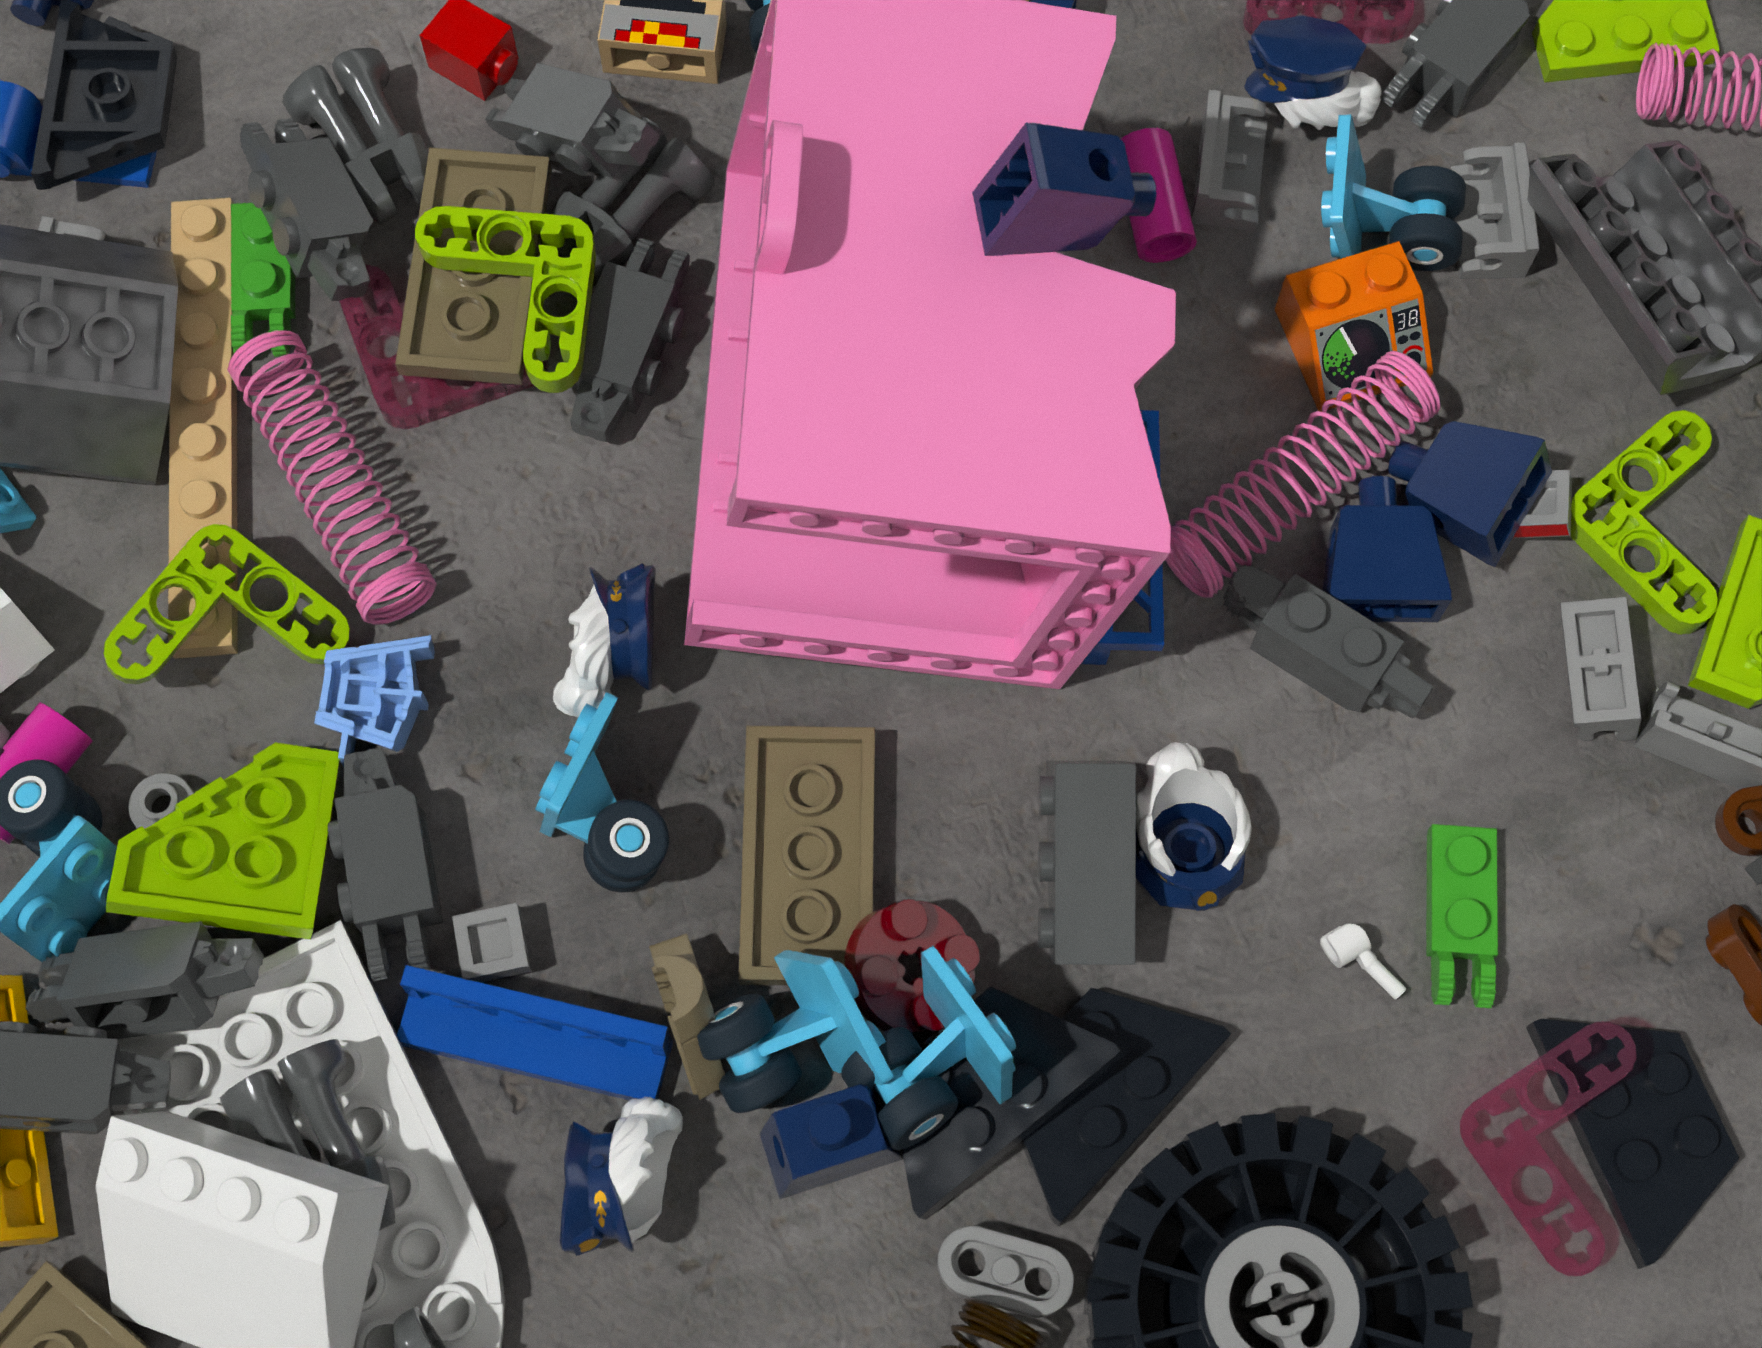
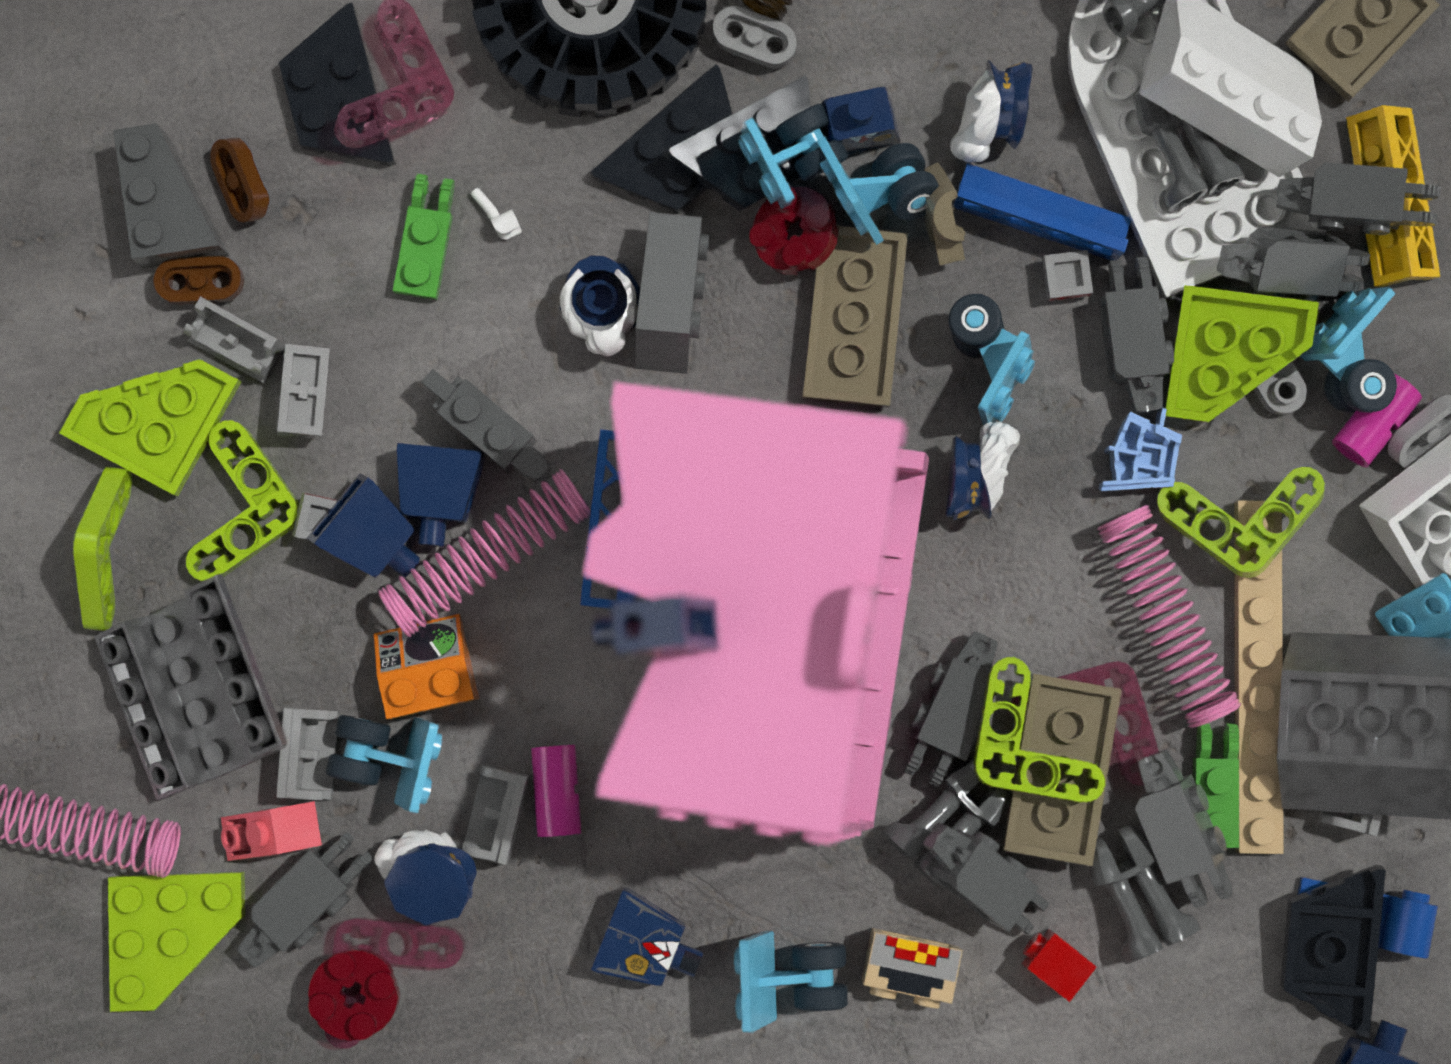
camera: 175 degrees left, 15 degrees up
(1522, 108) = (270, 831): none -> coral slope

